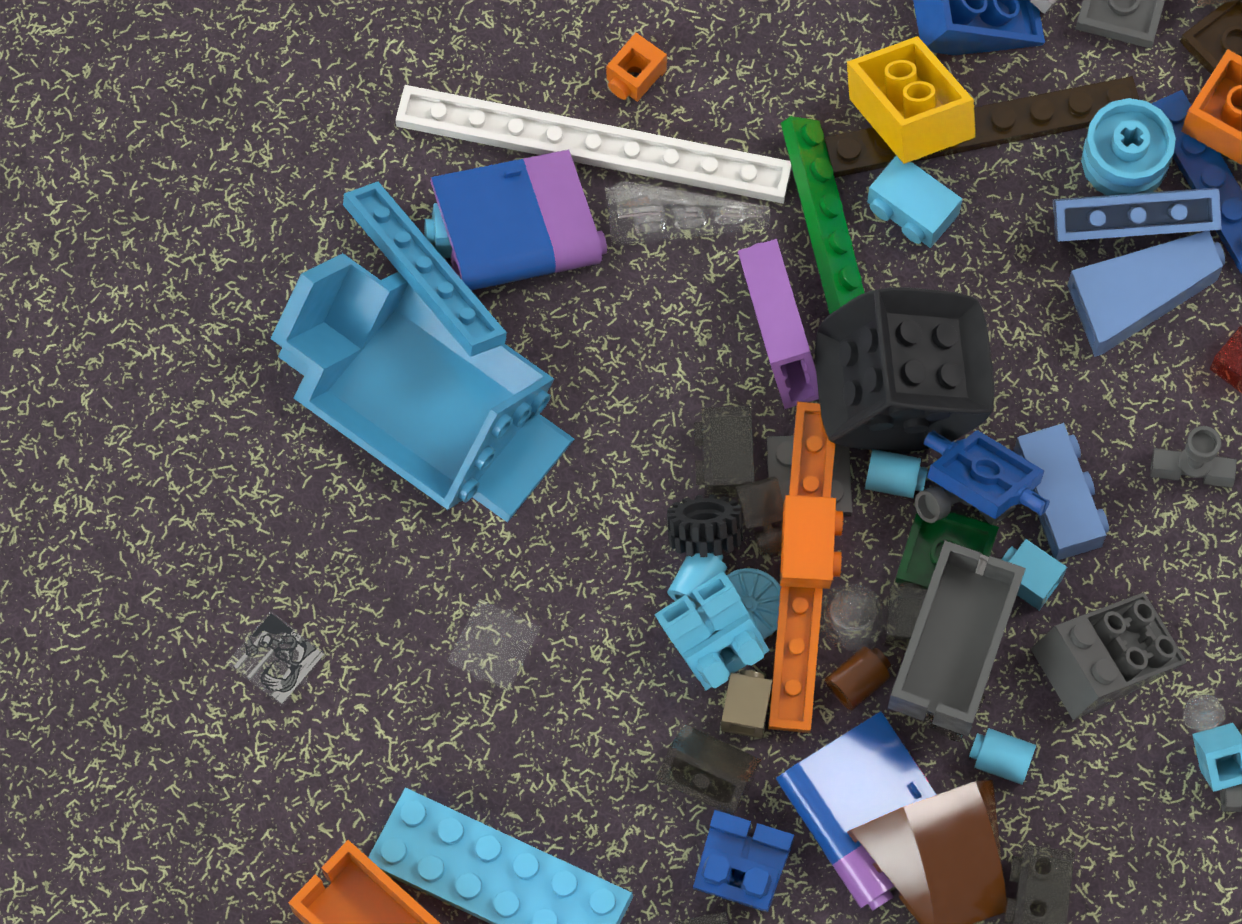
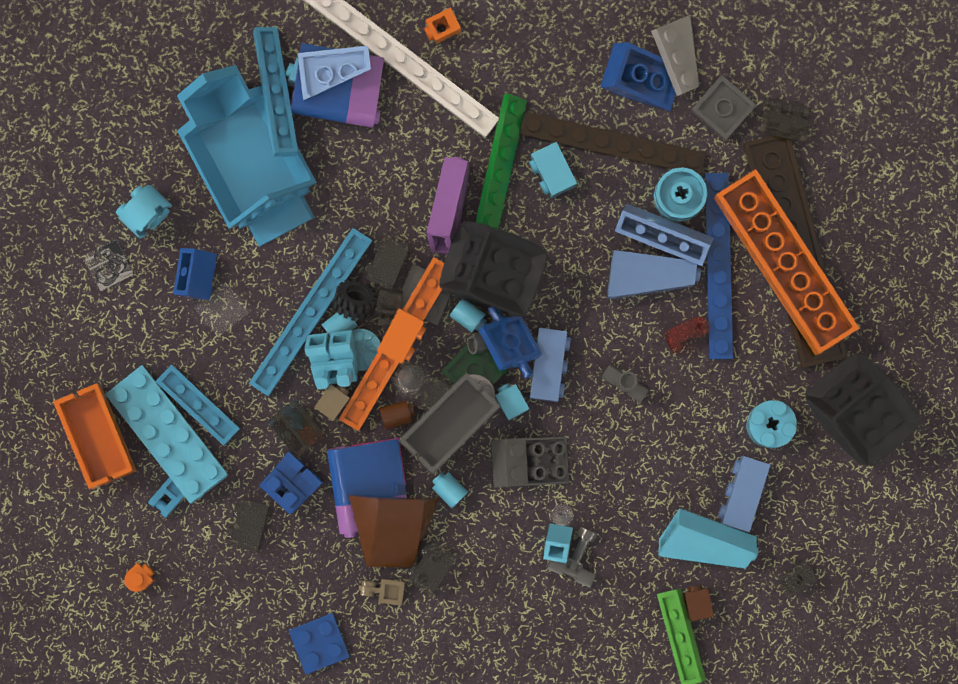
camera: 20 degrees right, 15 degrees up
(297, 539) = (144, 210): none -> medium azure brick
(426, 602) = (195, 274): none -> blue brick
(496, 190) = (330, 67): none -> light blue wing
(528, 810) = (197, 405): none -> dark azure plate
(639, 585) = (310, 312): none -> dark azure plate
(661, 214) = (412, 113): clear wedge -> none
(911, 99) = (576, 116): yellow brick -> none

